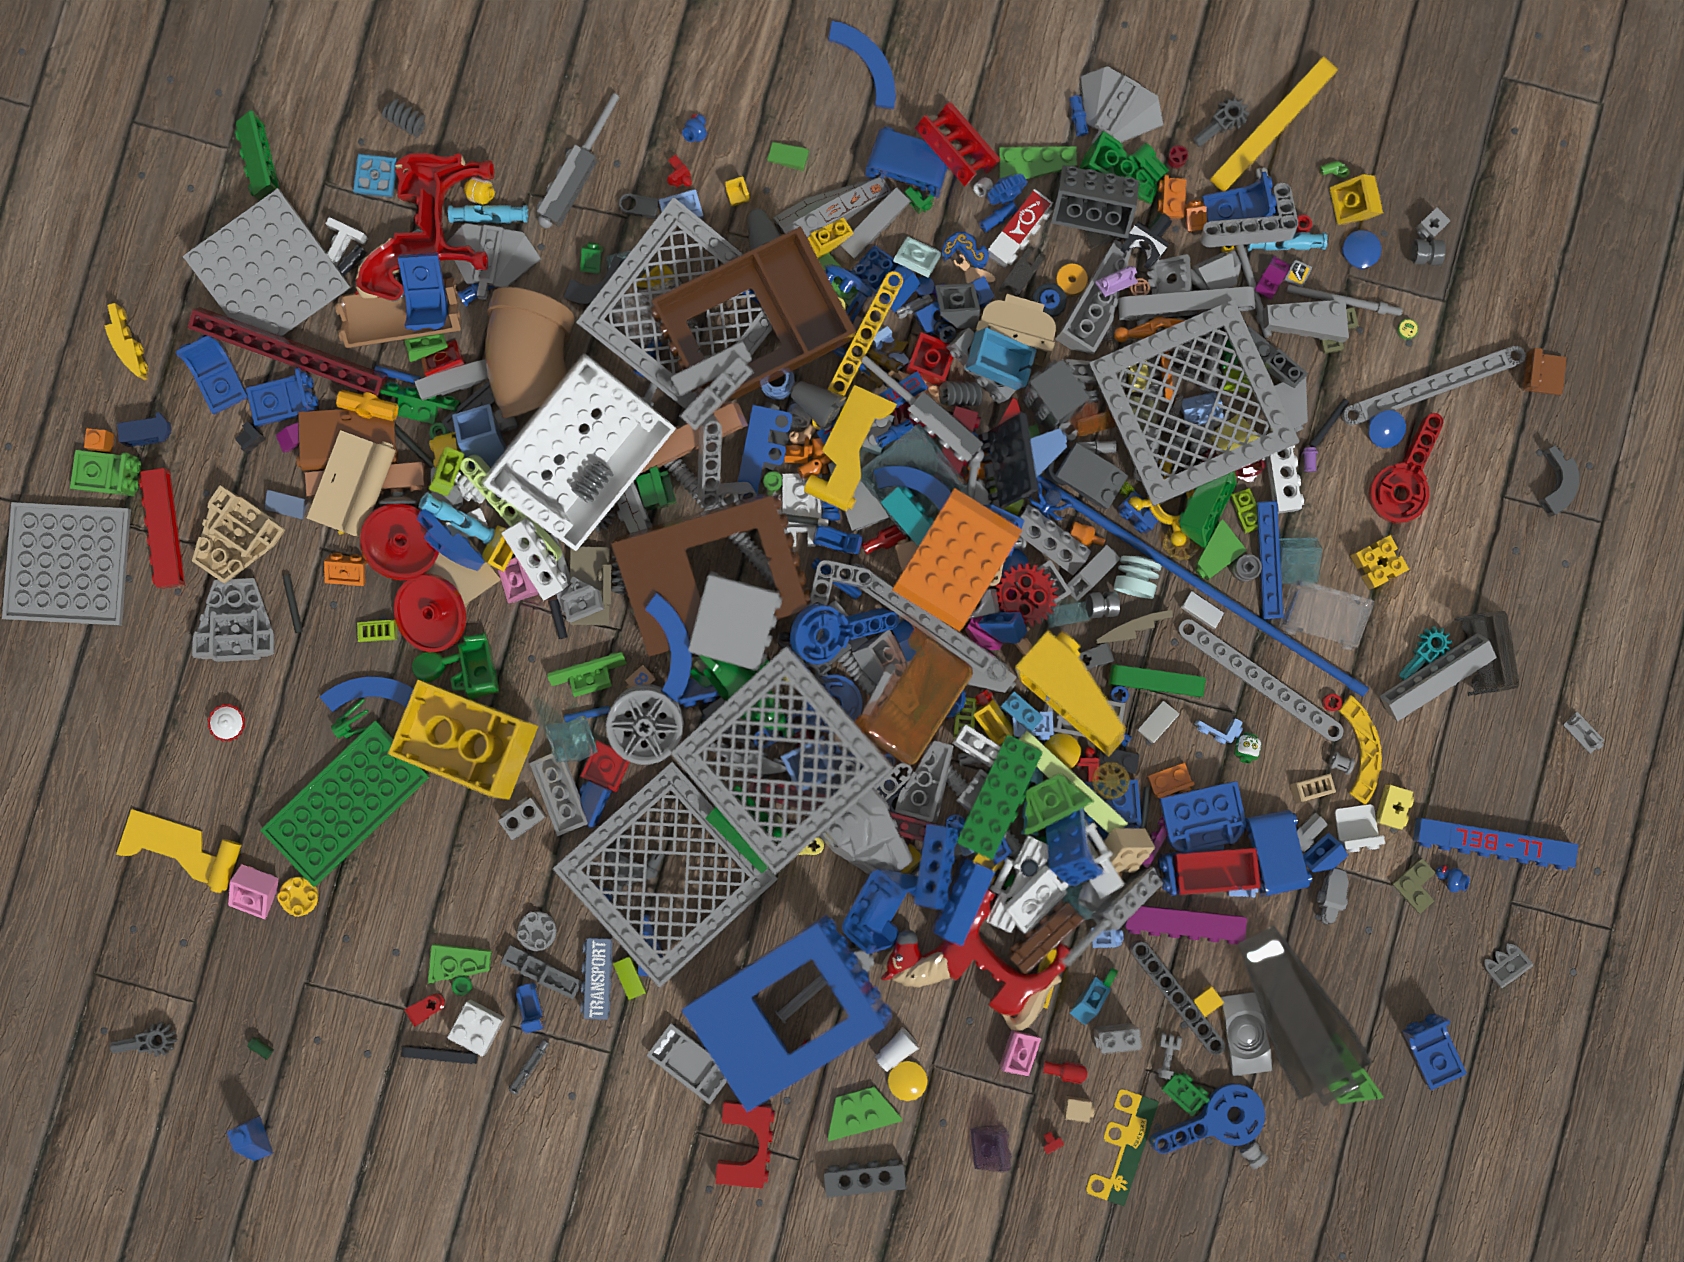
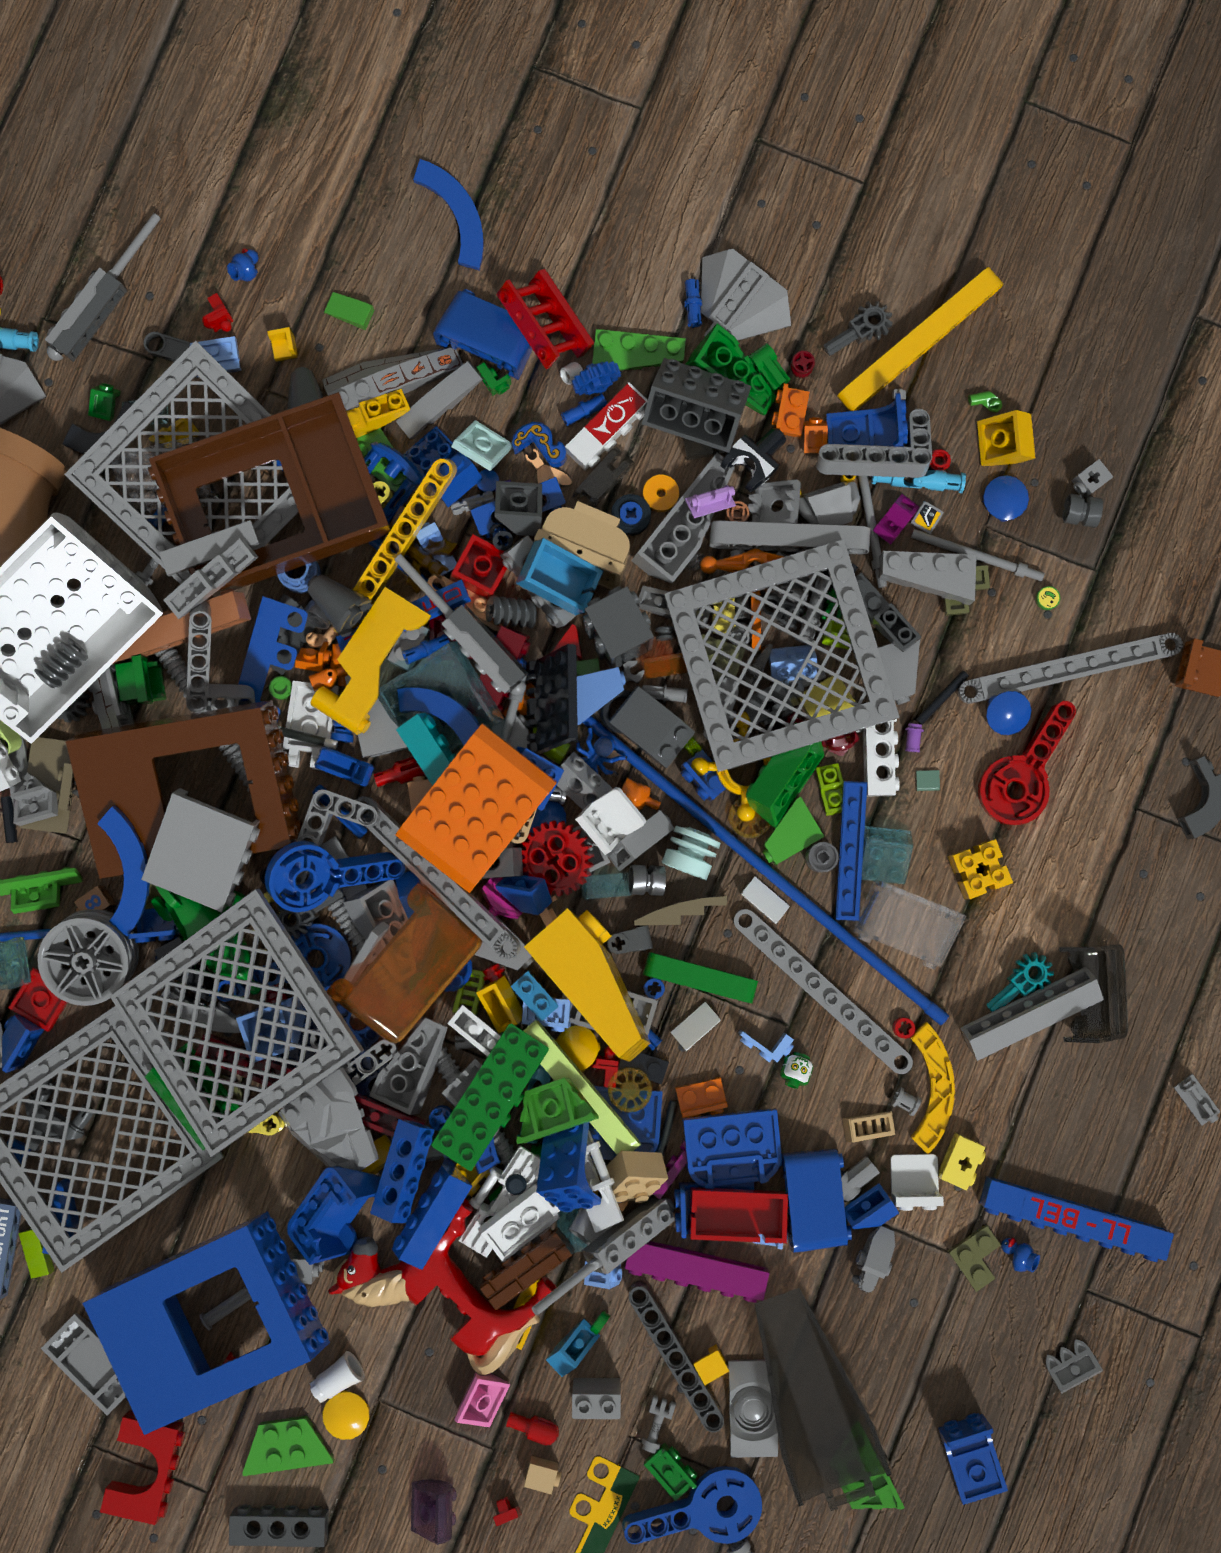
camera: 10 degrees right, 0 degrees up
(1069, 555) = (610, 819): none -> white bracket
(1326, 494) = (928, 780): none -> sand green piece

